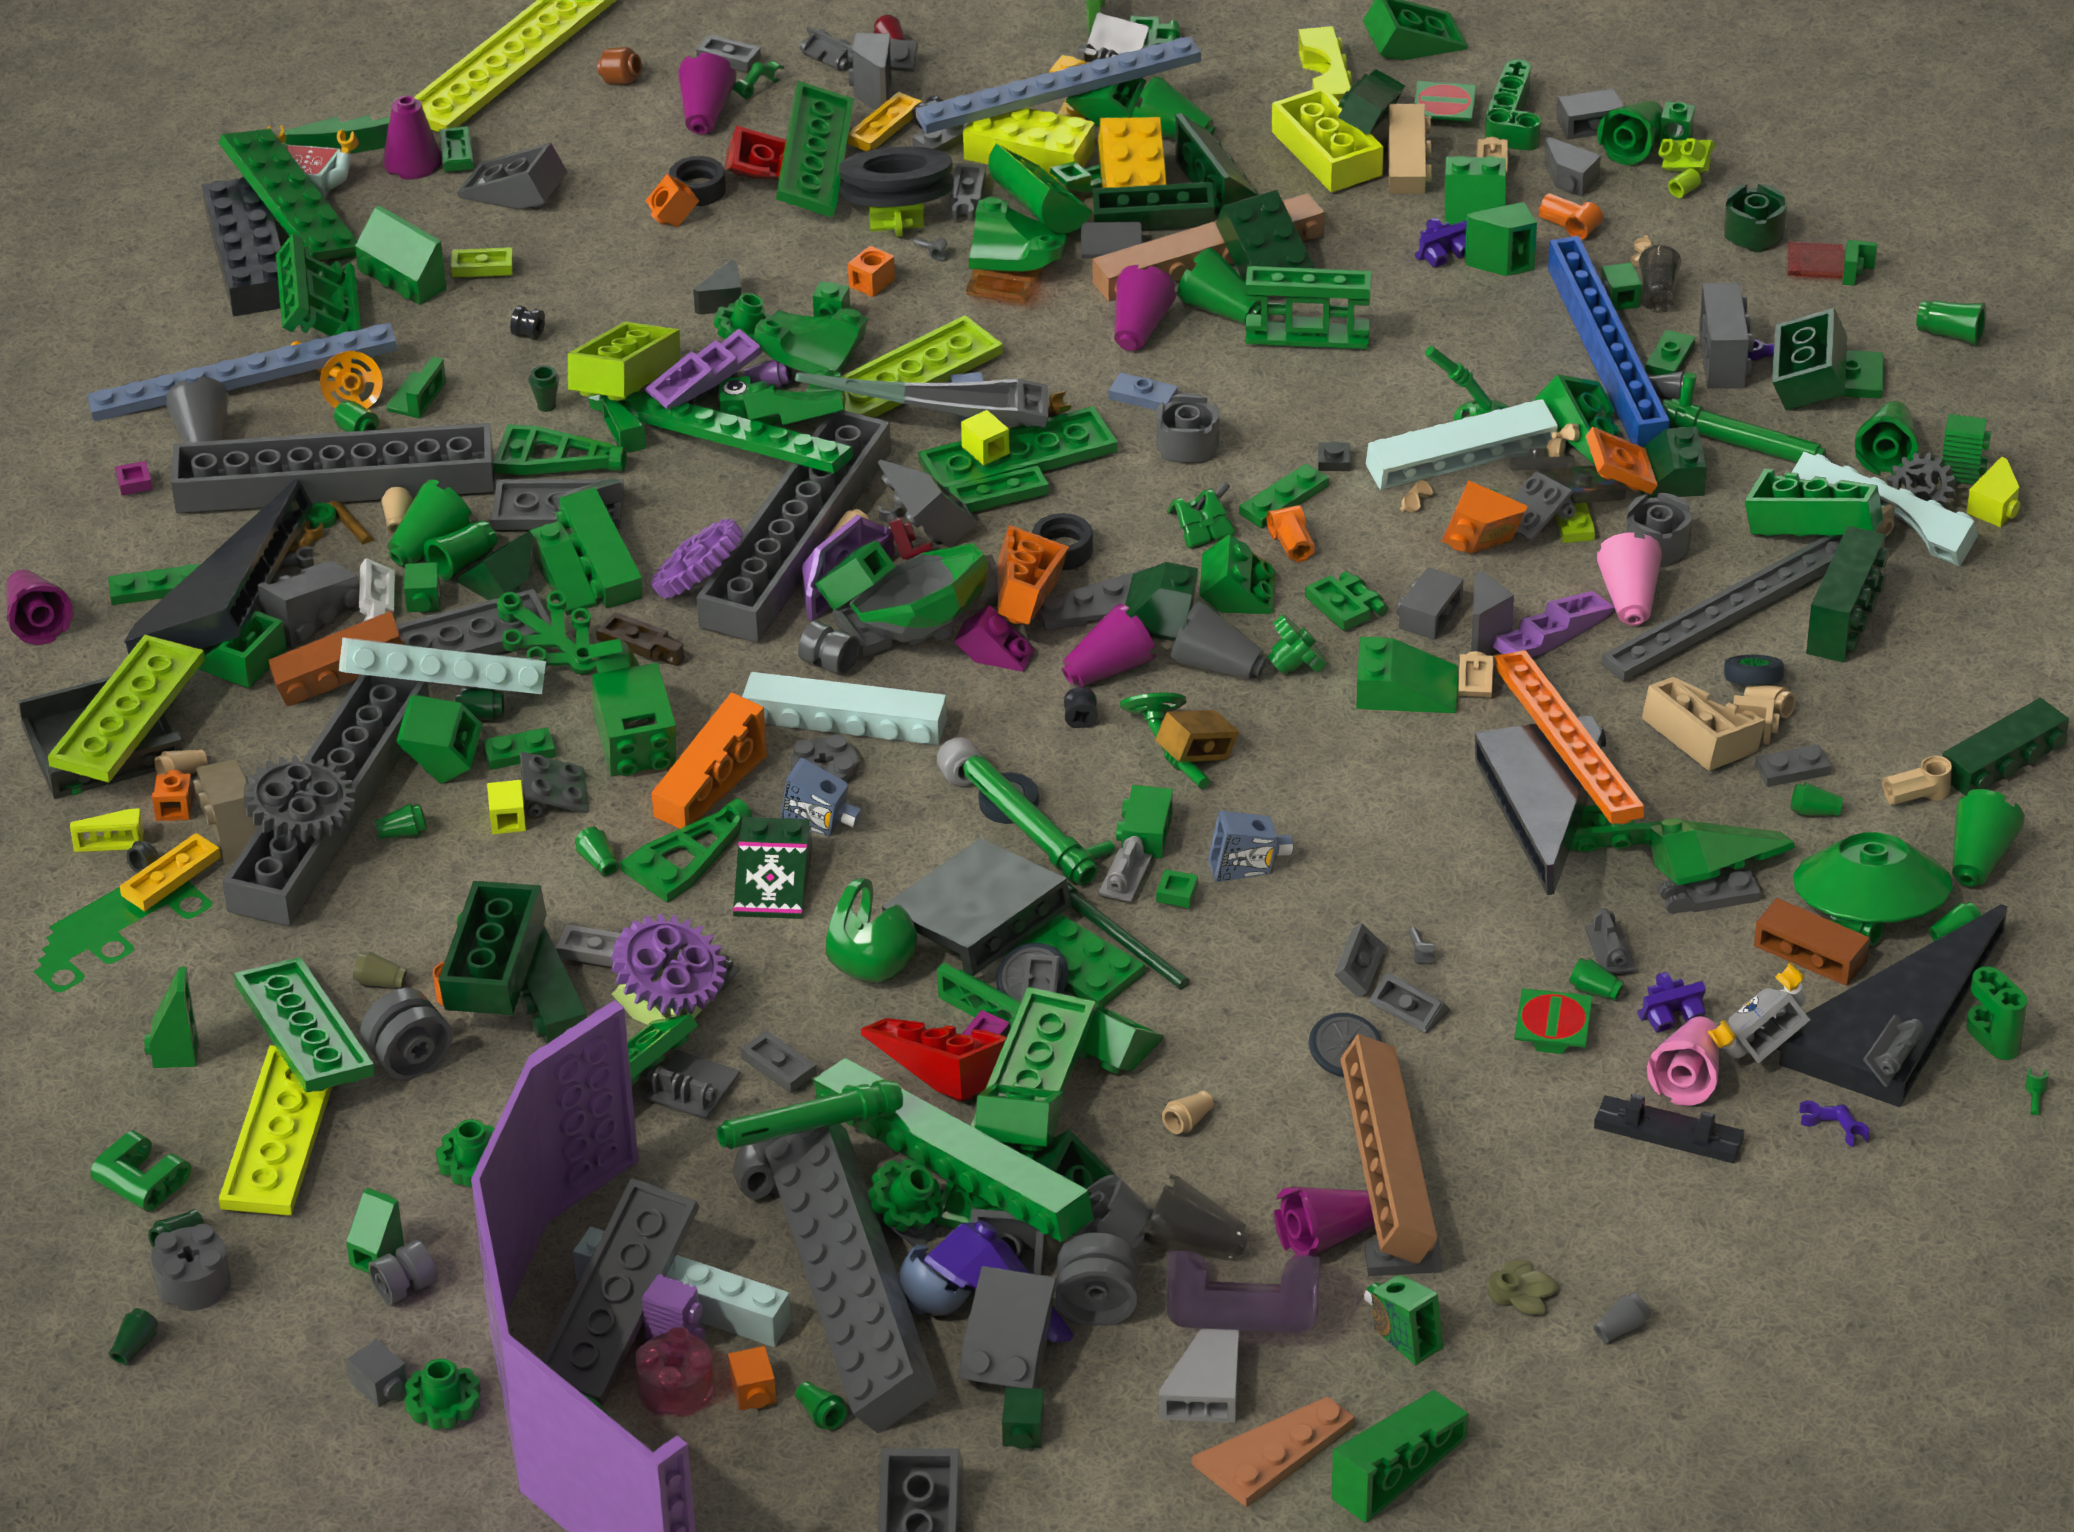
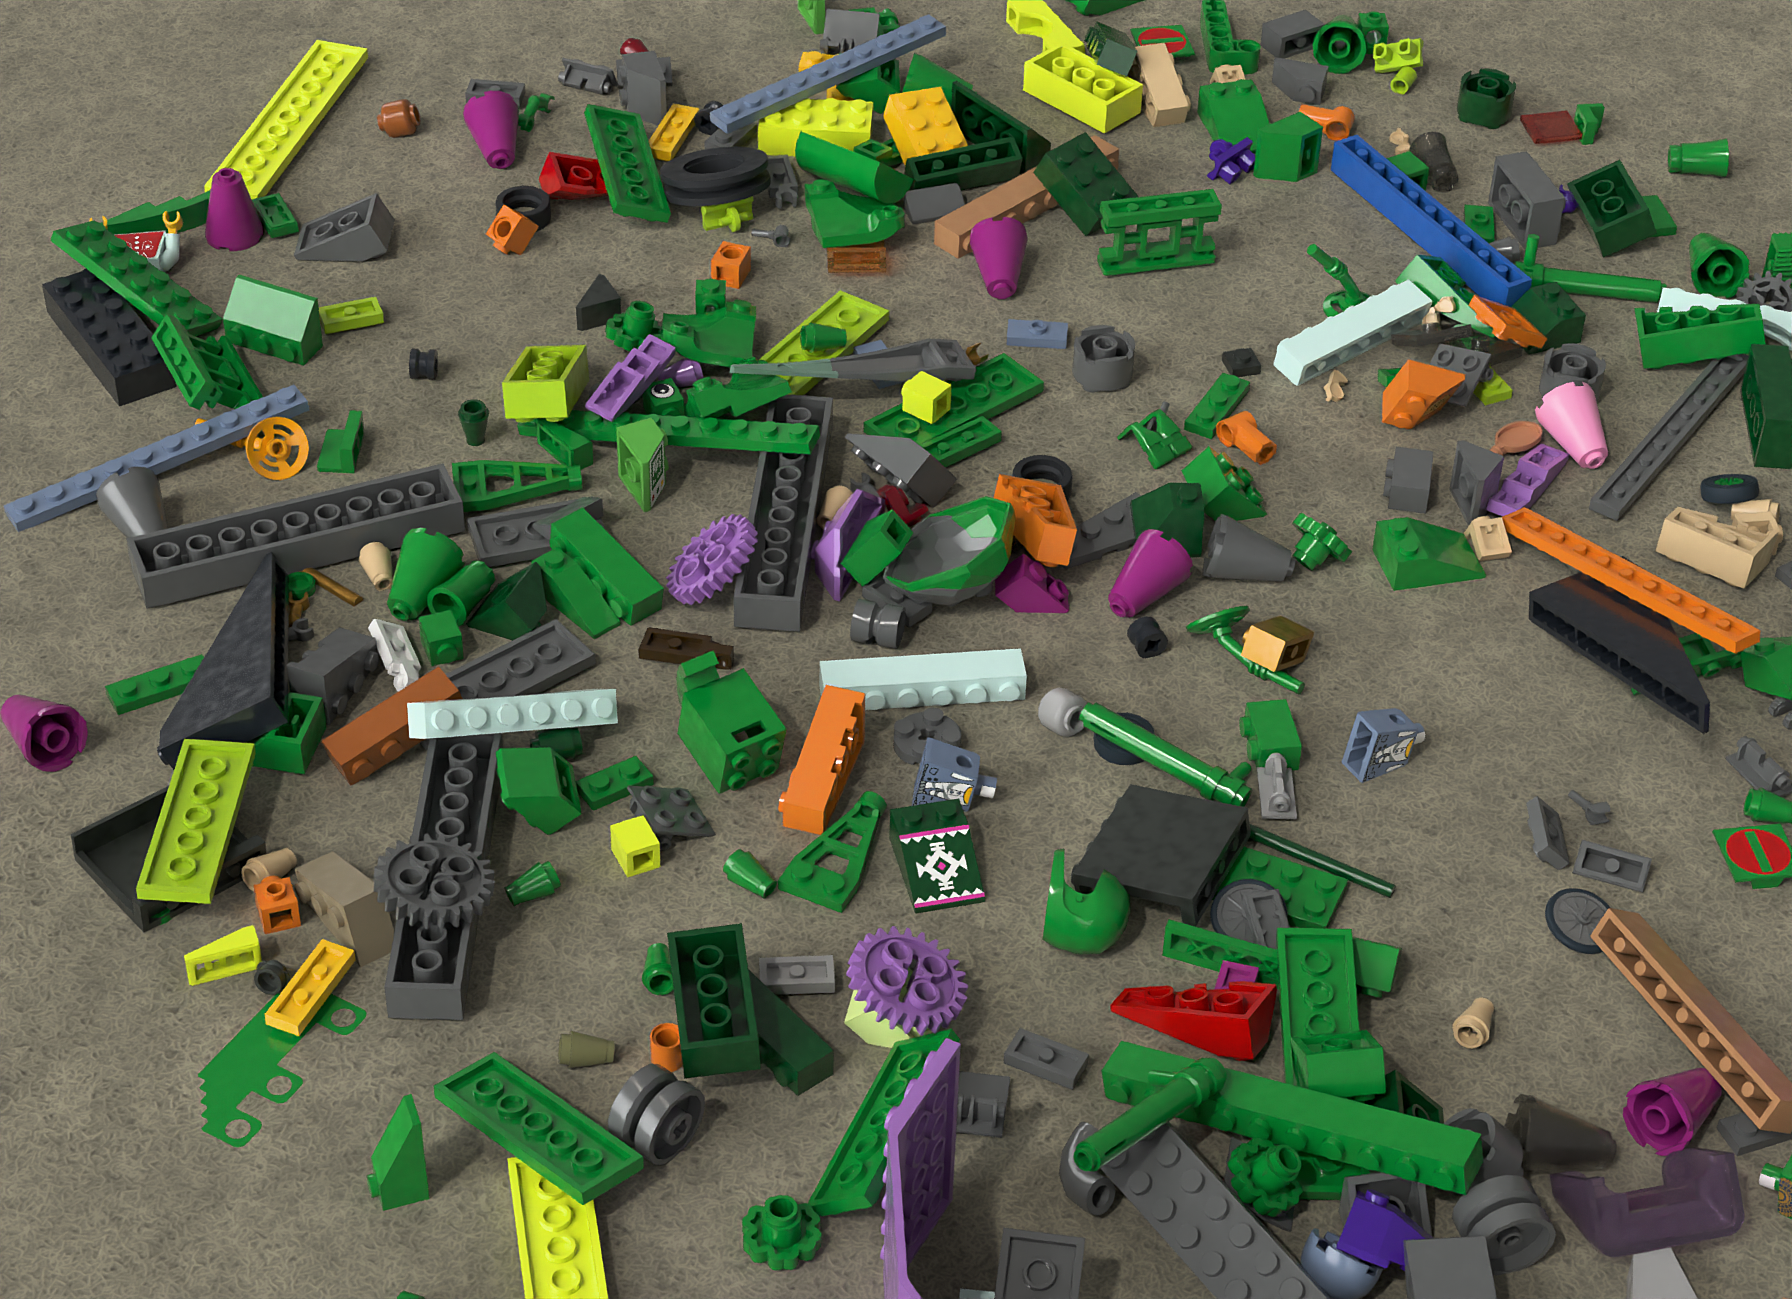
camera: 20 degrees left, 0 degrees up
(133, 478) = (88, 581): magenta plate -> none
(354, 417) = (293, 483): green brick -> none
(548, 635) = (595, 662): green plant -> none
(684, 453) = (642, 460): none -> bright green slope
(916, 360) = (821, 337): none -> green cone
(1177, 888) = (1335, 797): green plate -> none
(1216, 288) = (1064, 231): green cone -> none
(1339, 599) = (1329, 491): green plate -> none
(1563, 582) = (1517, 437): none -> nougat piece

